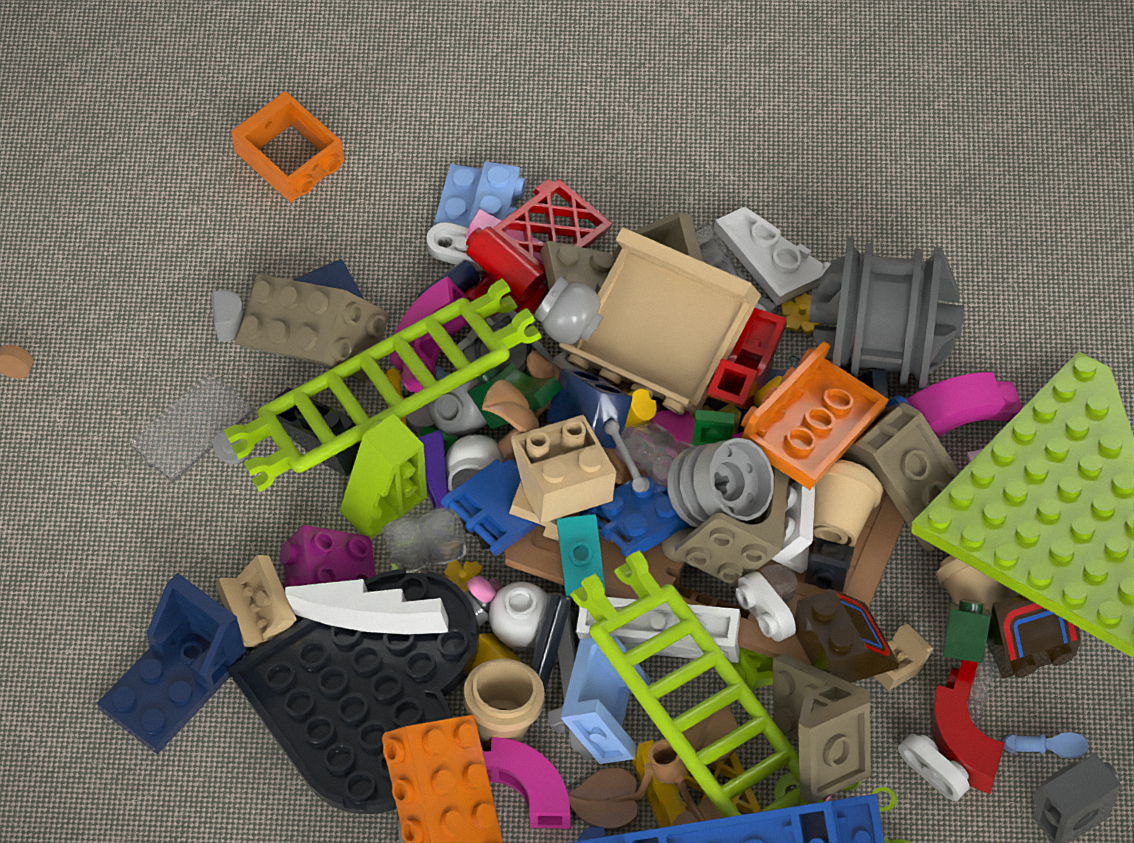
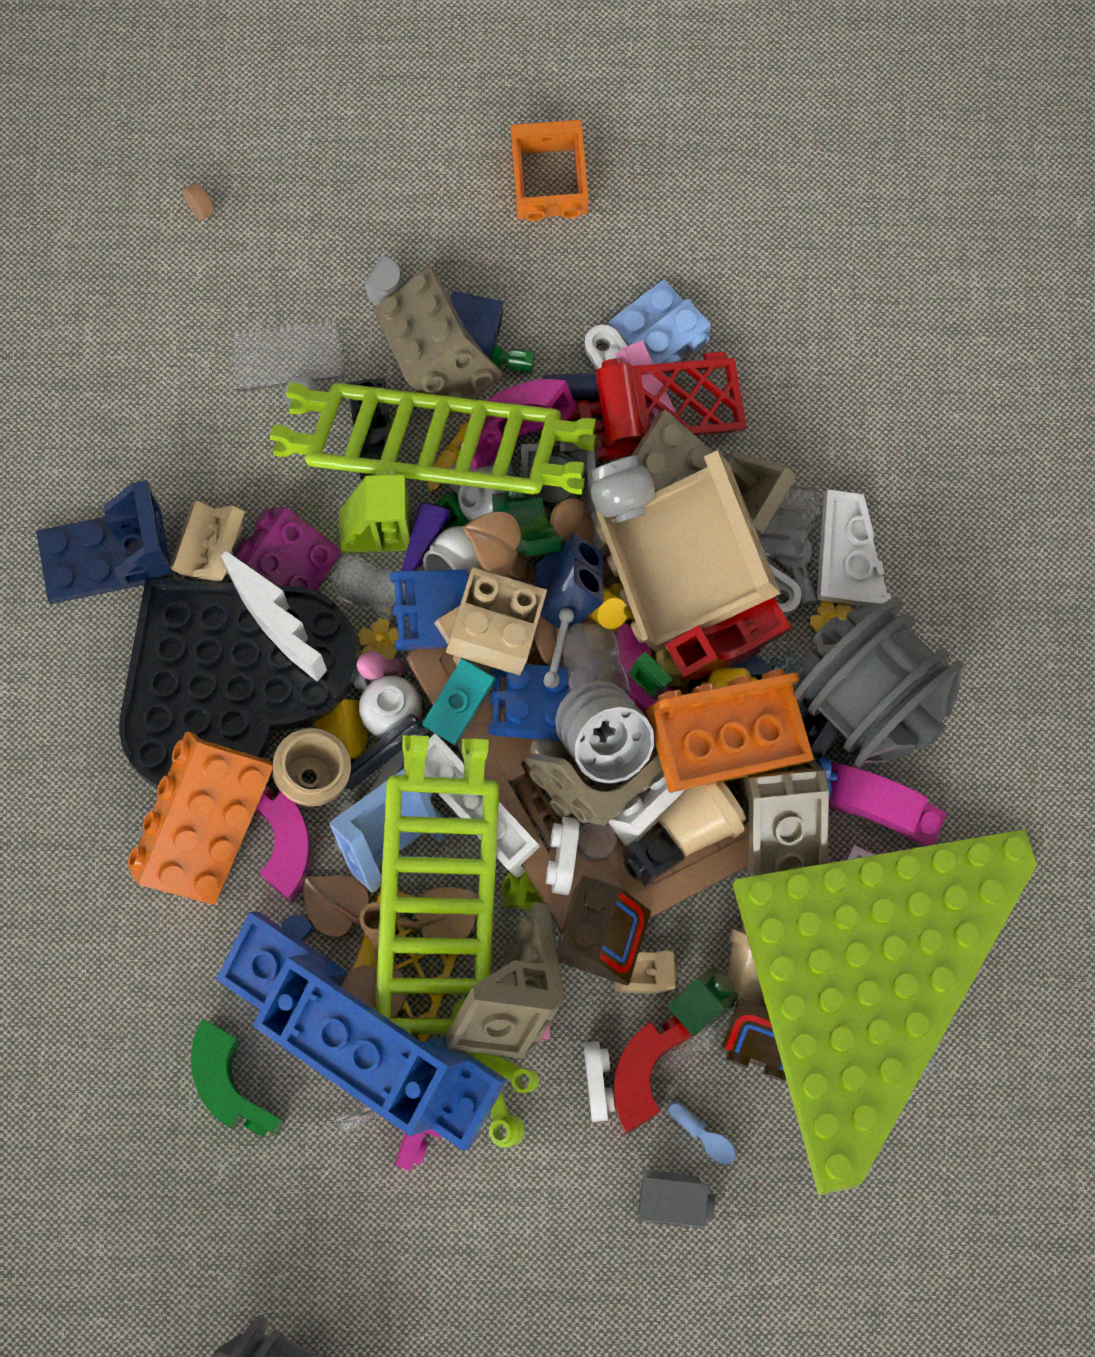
camera: 40 degrees right, 15 degrees up
(388, 297) = (517, 359): none -> green piece

